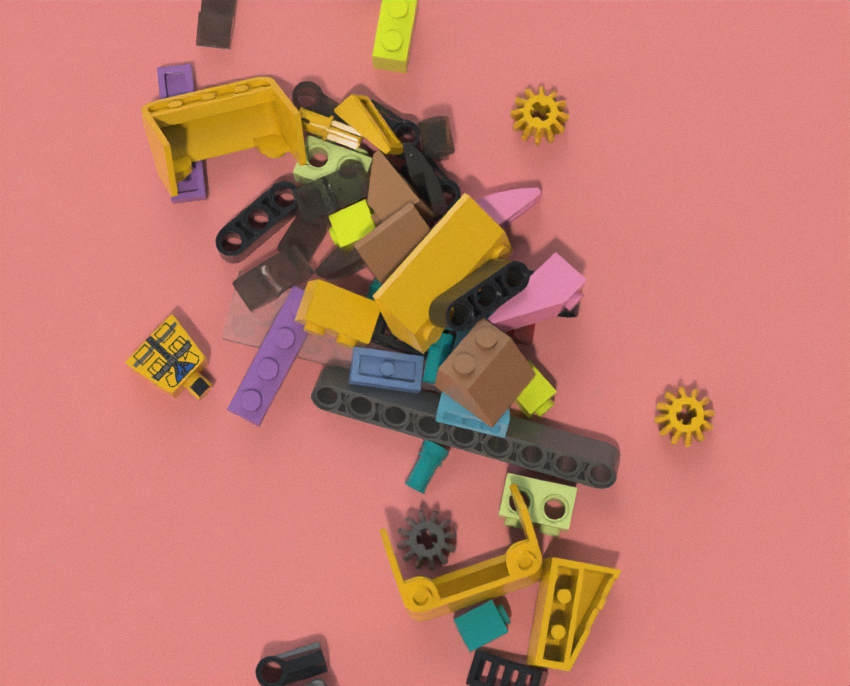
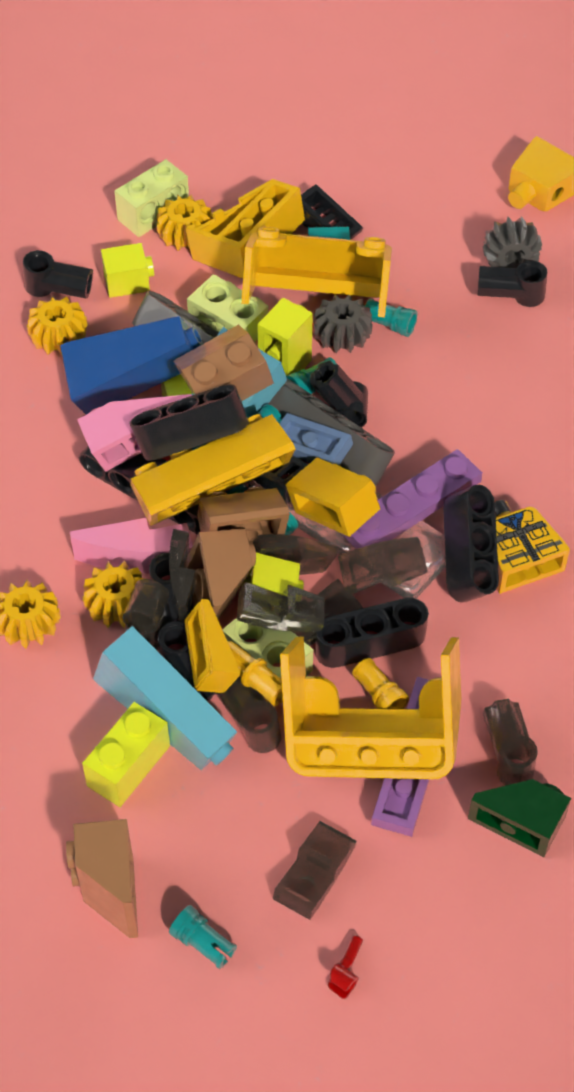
camera: 155 degrees left, 25 degrees down
(80, 119) = (522, 813): none -> dark green slope
(113, 176) = (510, 741): none -> clear smoke piece
(208, 331) = (470, 543): none -> black beam
(226, 176) = (383, 691): none -> yellow pin
(381, 574) = (398, 319): none -> teal pin
(385, 443) = (340, 392): none -> black piece
(391, 83) = (138, 673): none -> medium azure slope
(462, 477) = (287, 335): none -> neon yellow brick
(479, 178) = (109, 592): none -> yellow gear
(591, 383) = (125, 361): none -> blue slope
(637, 612) = (177, 216): none -> yellow gear
(658, 513) = (126, 270): none -> neon yellow brick
(683, 614) = (142, 196): none -> yellowish green brick
(713, 474) = (46, 276): none -> black piece

